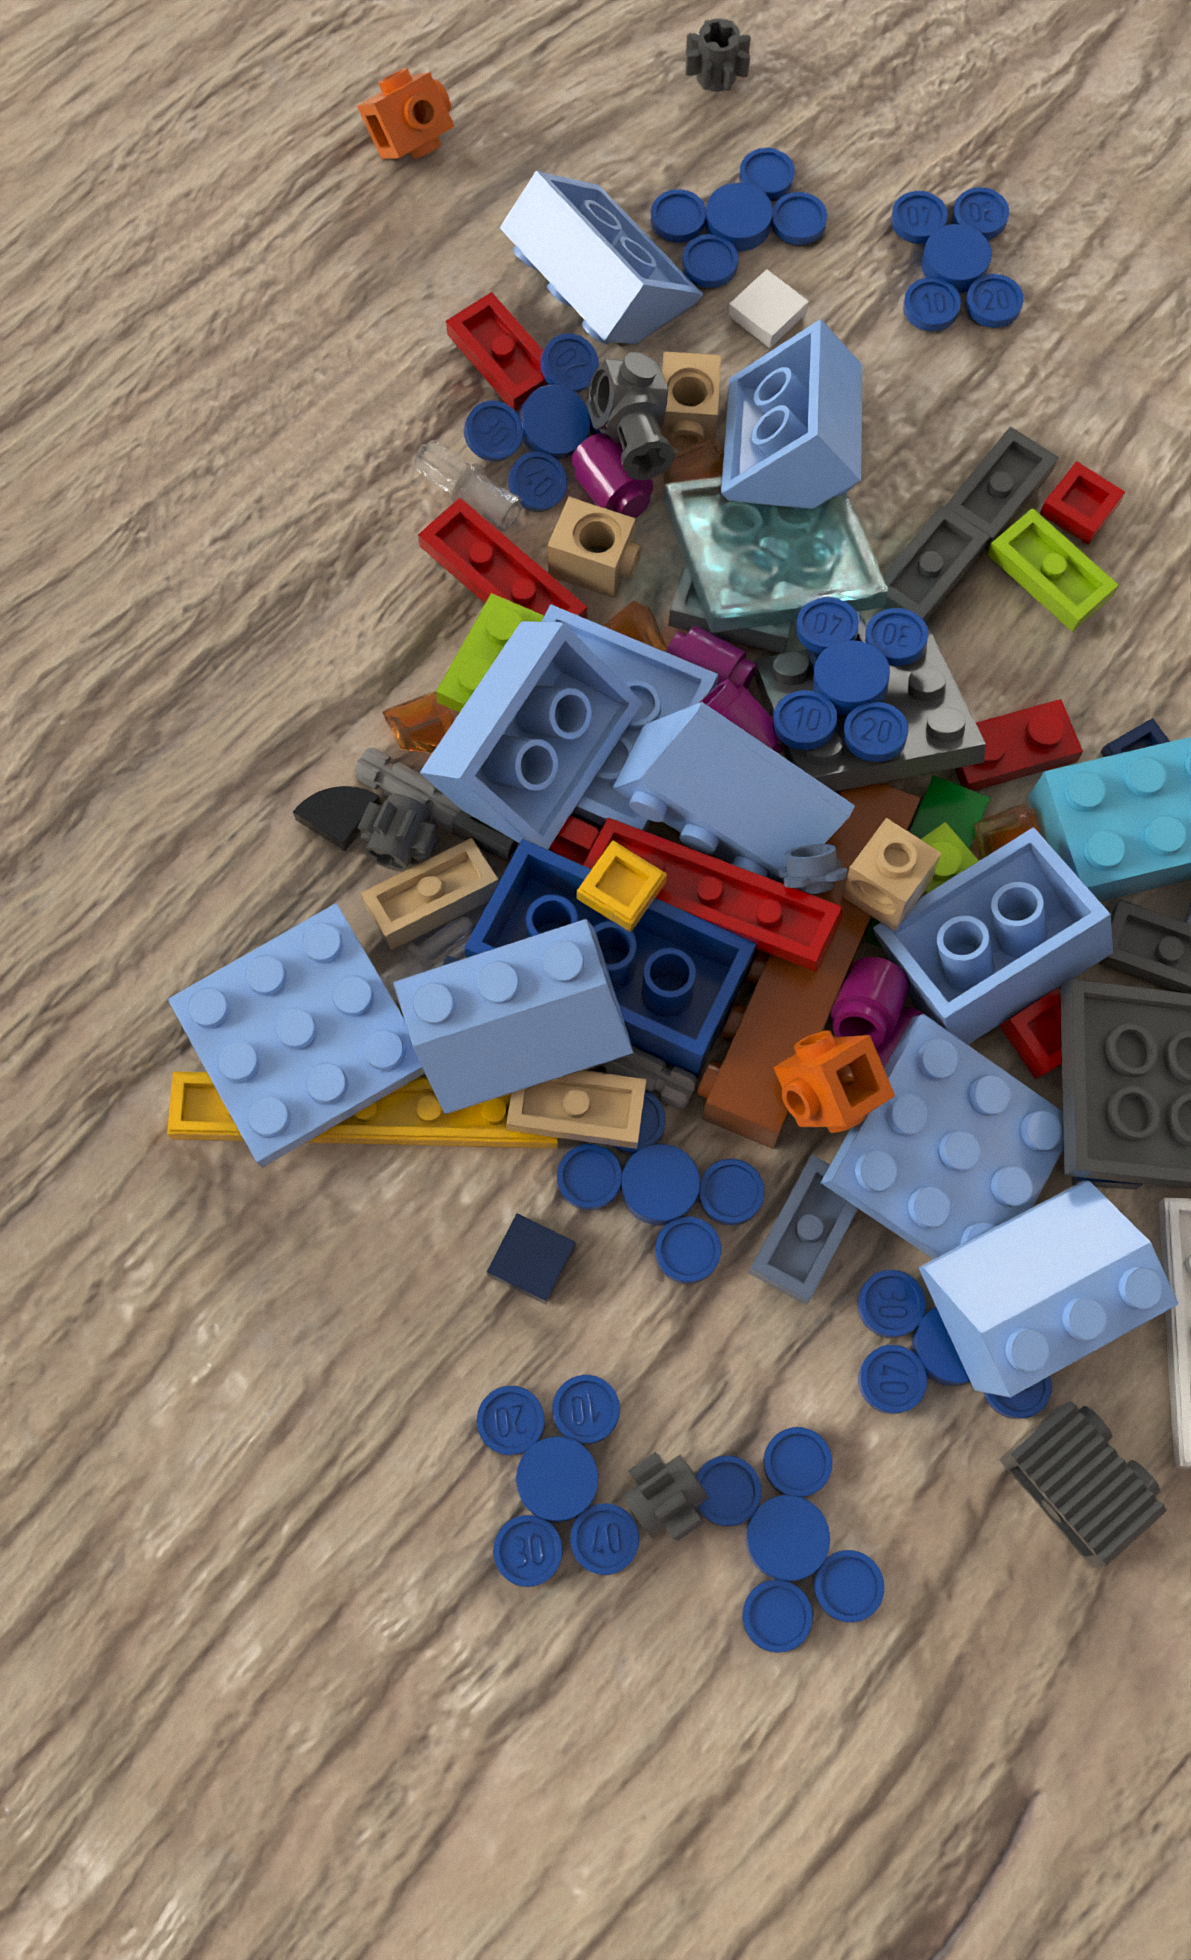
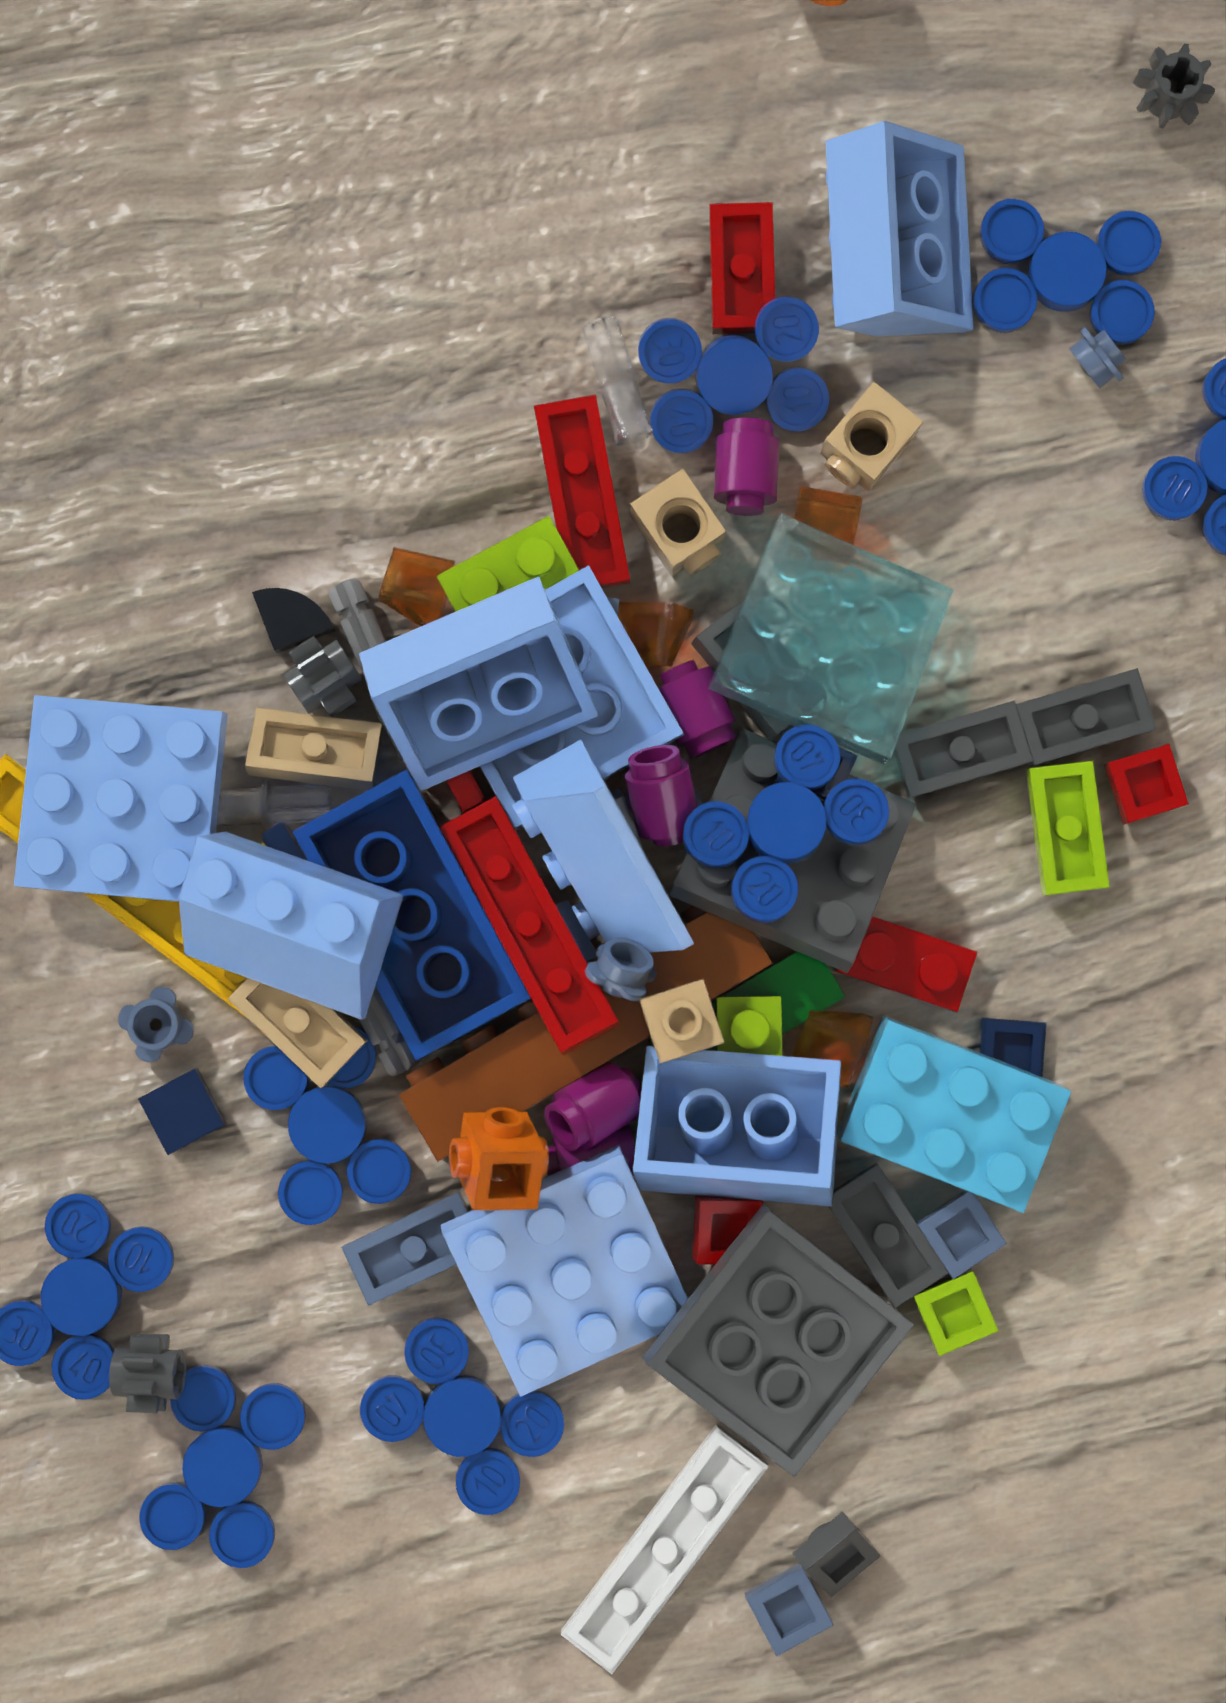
camera: 40 degrees right, 15 degrees up
(452, 1184) = (137, 1023): none -> sand blue plate
(621, 886) = (453, 872): yellow tile -> none
(630, 405) = (798, 421): dark grey connector -> none
(768, 308) = (1019, 388): white tile -> none
(795, 423) = (938, 535): light blue slope -> none
(808, 249) = (1098, 357): none -> sand blue plate
(1046, 1289) = (554, 1435): light blue slope -> none
(1085, 1483) = (472, 1594): dark grey brick -> none

